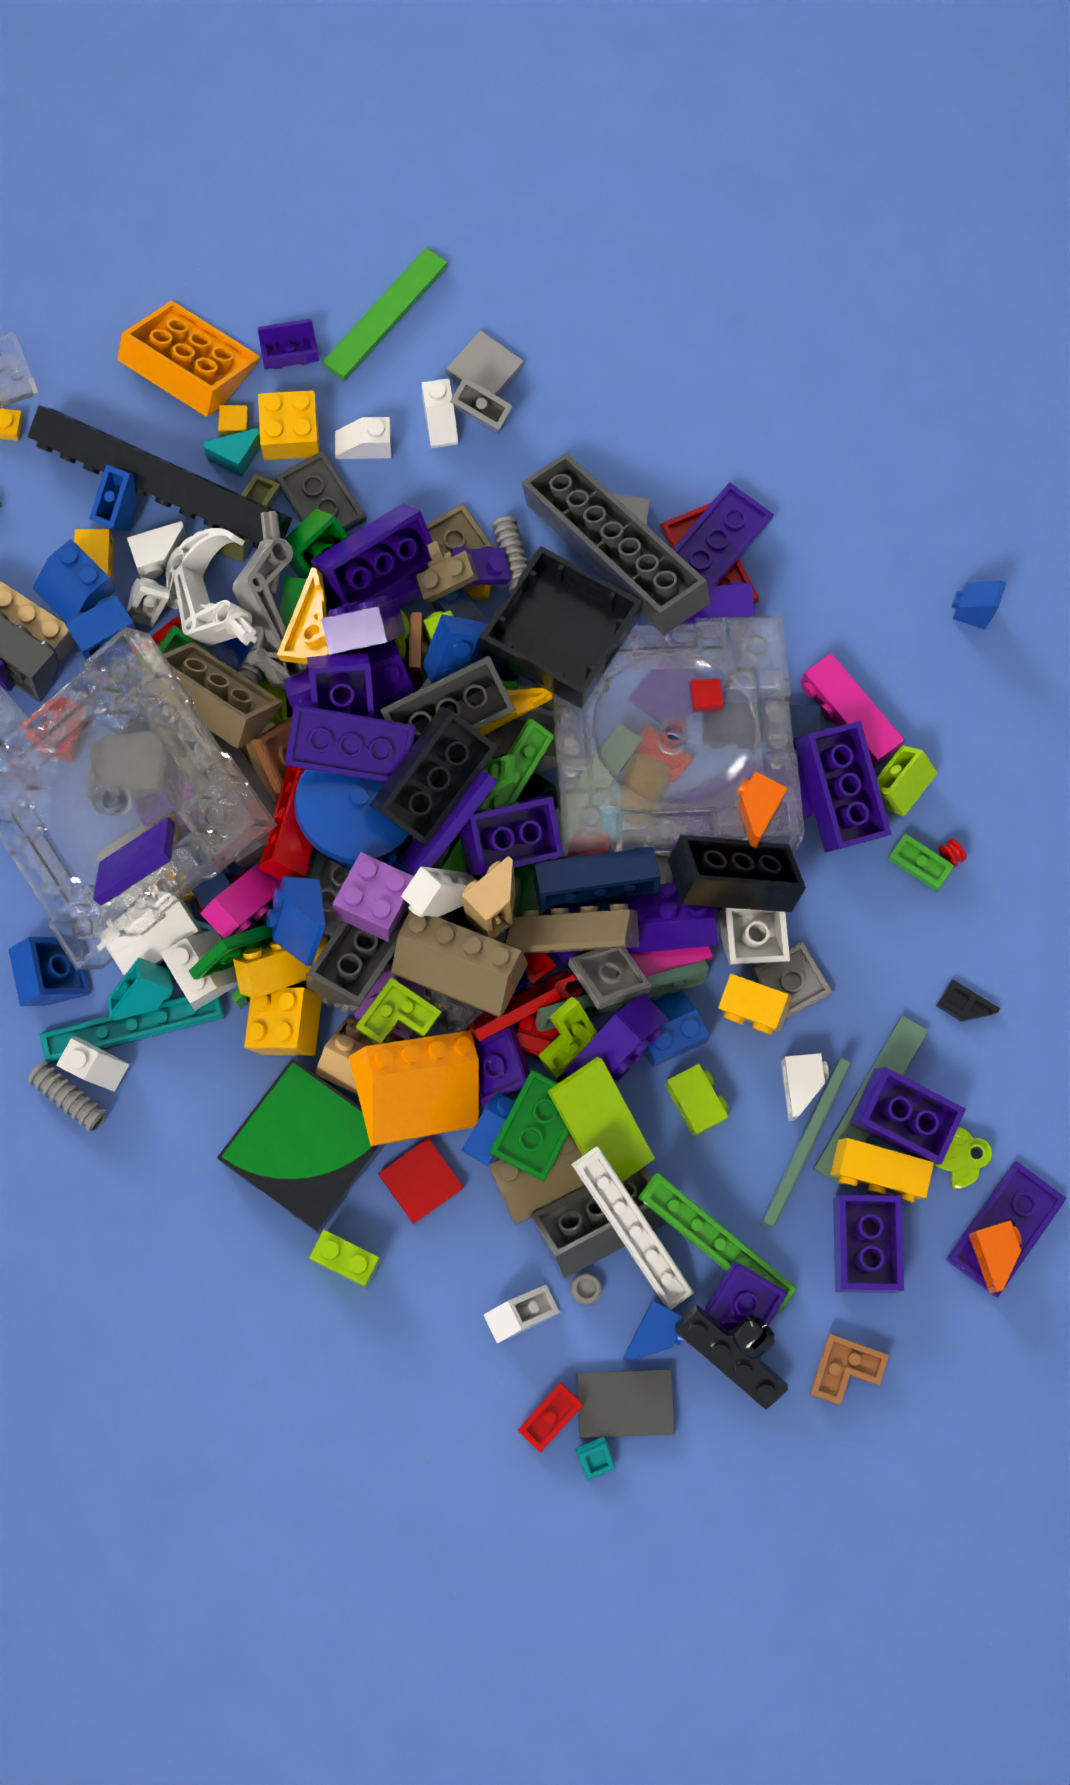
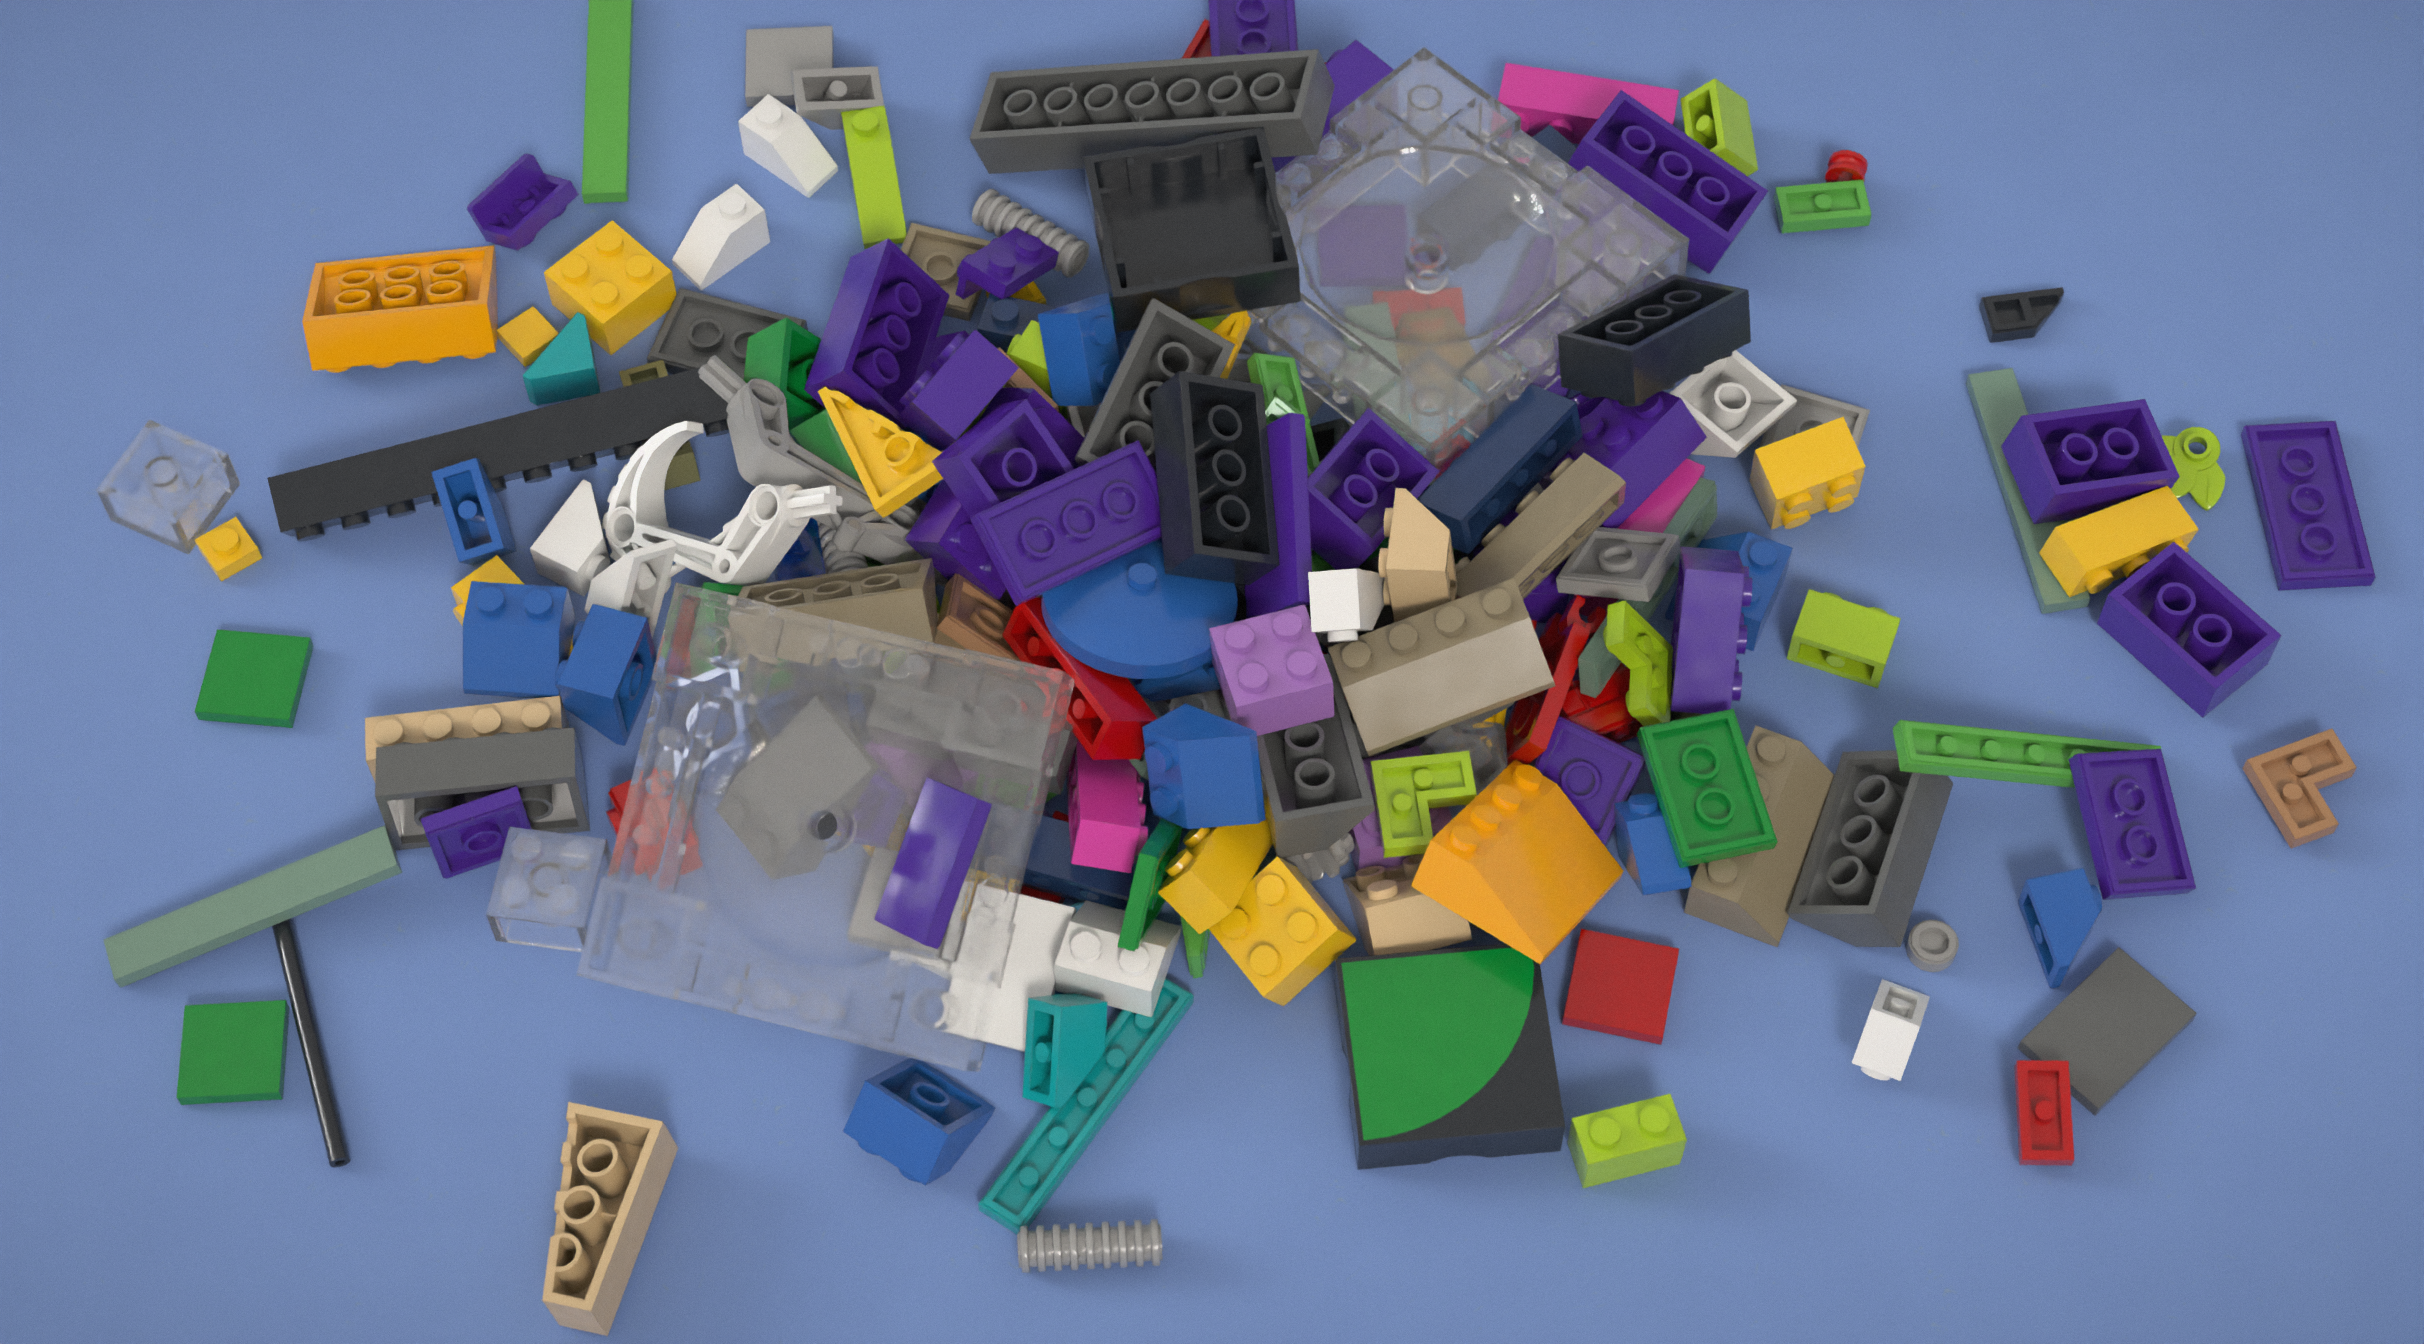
camera: 35 degrees left, 15 degrees down
(92, 1064) = (1084, 1175): white slope -> none
(445, 572) = (982, 288): dark tan hinge -> none
(466, 463) = (874, 175): none -> lime slope
(595, 1458) = (2139, 1116): teal tile -> none
(601, 1118) = (1778, 727): lime tile -> none
(632, 1228) = (1924, 809): white tile -> none
(706, 695) = (1425, 186): red tile -> none
(736, 1352) = (2174, 855): black plate -> none
(759, 804) = (1612, 240): orange slope -> none
(802, 1081) = (1936, 526): white slope -> none
(805, 1144) = (2009, 588): sand green tile -> none
(996, 1253) = (2331, 527): orange slope -> none

